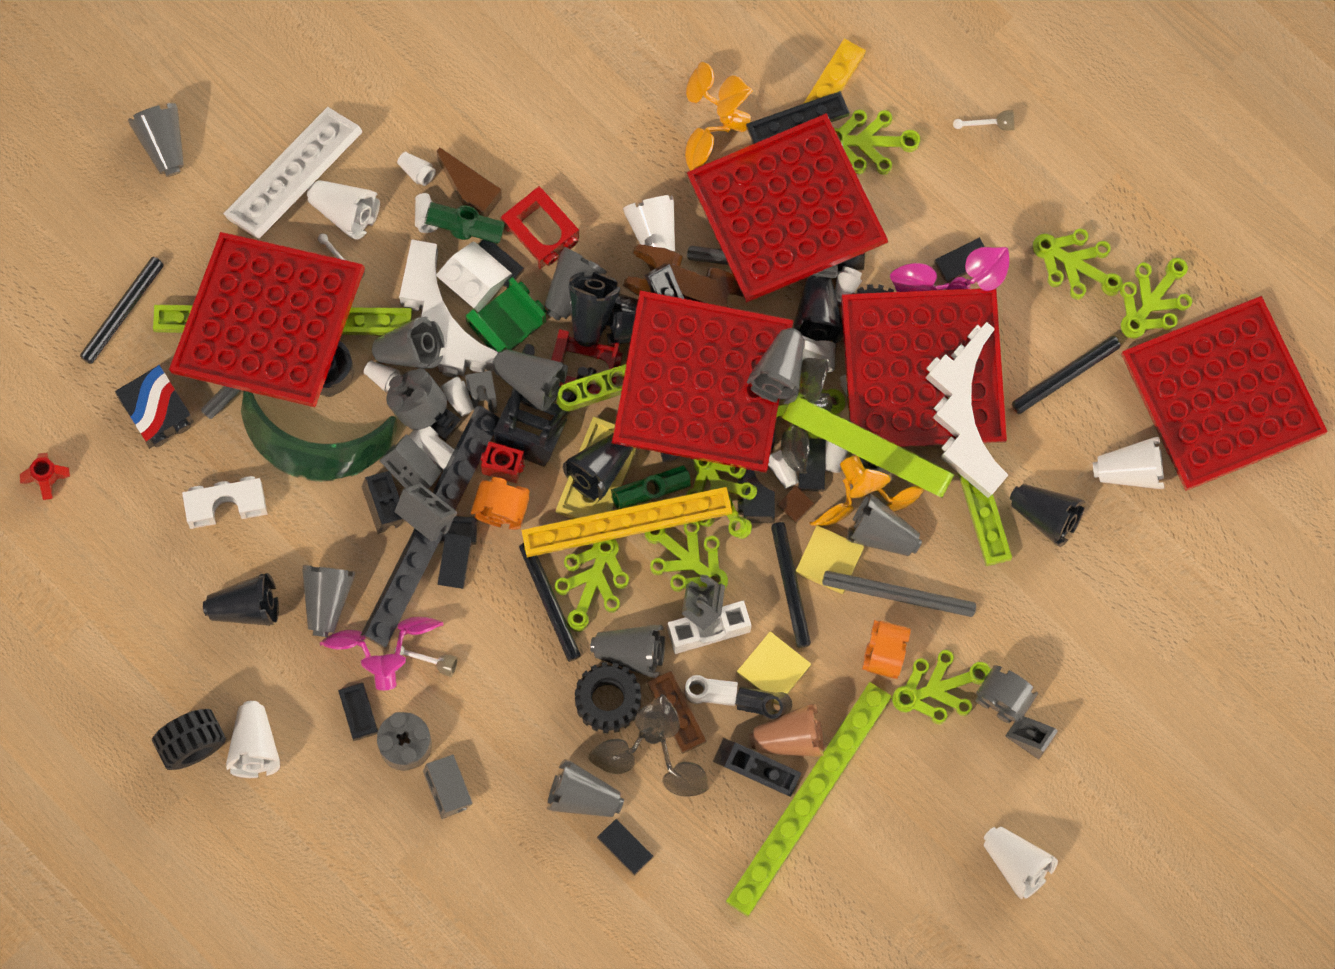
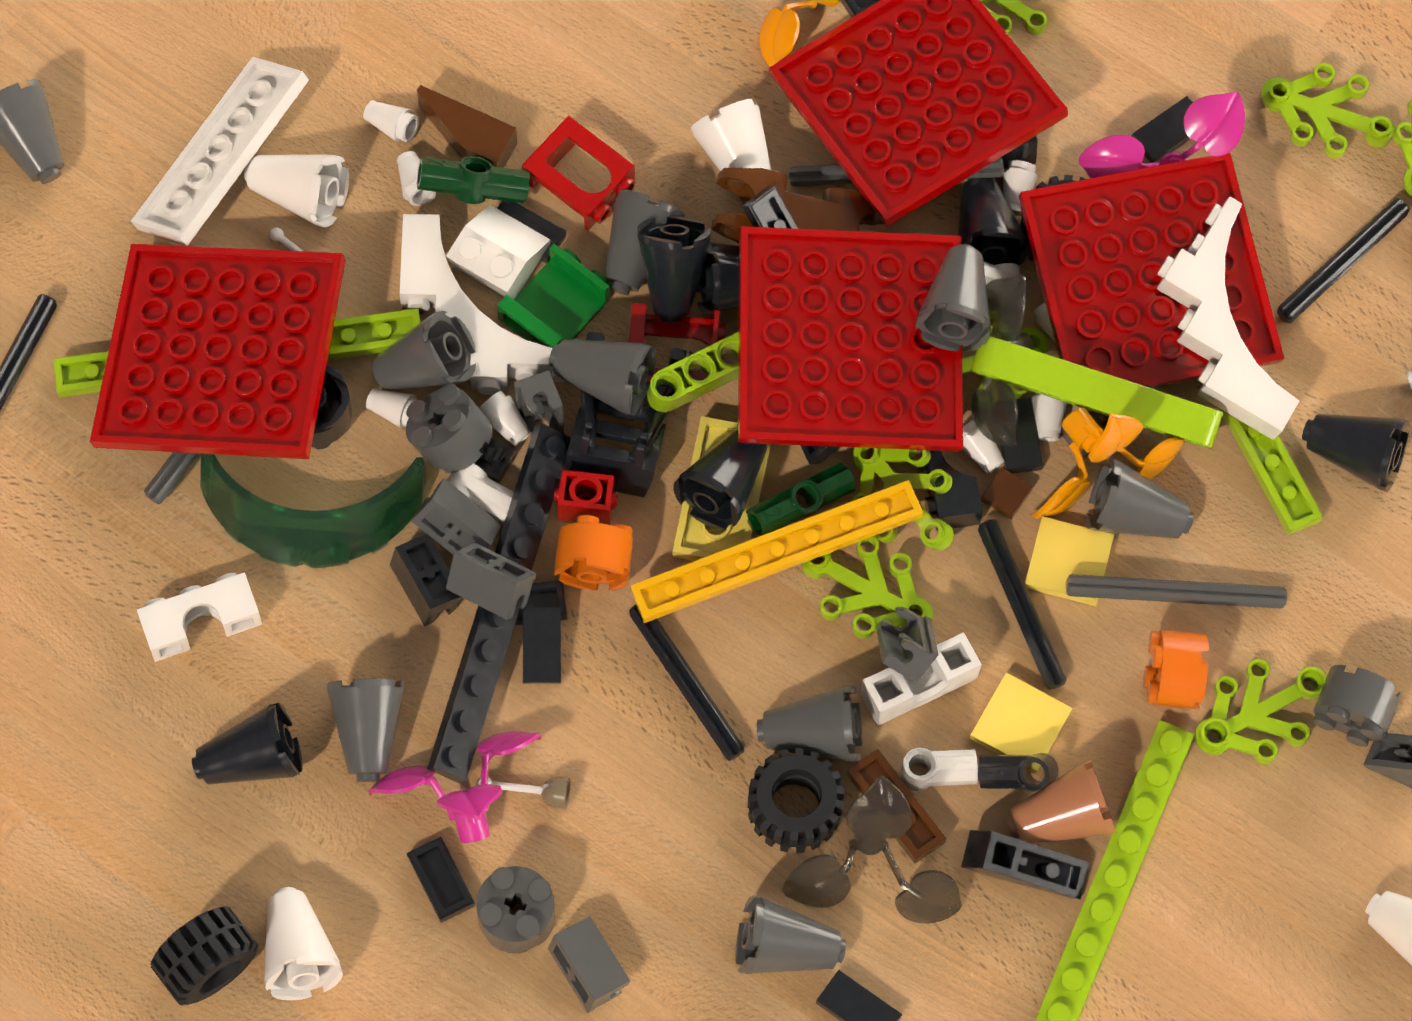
camera: 10 degrees left, 5 degrees down
(154, 407) = (77, 499): panel -> none
(594, 578) = (742, 638): lime plant -> none

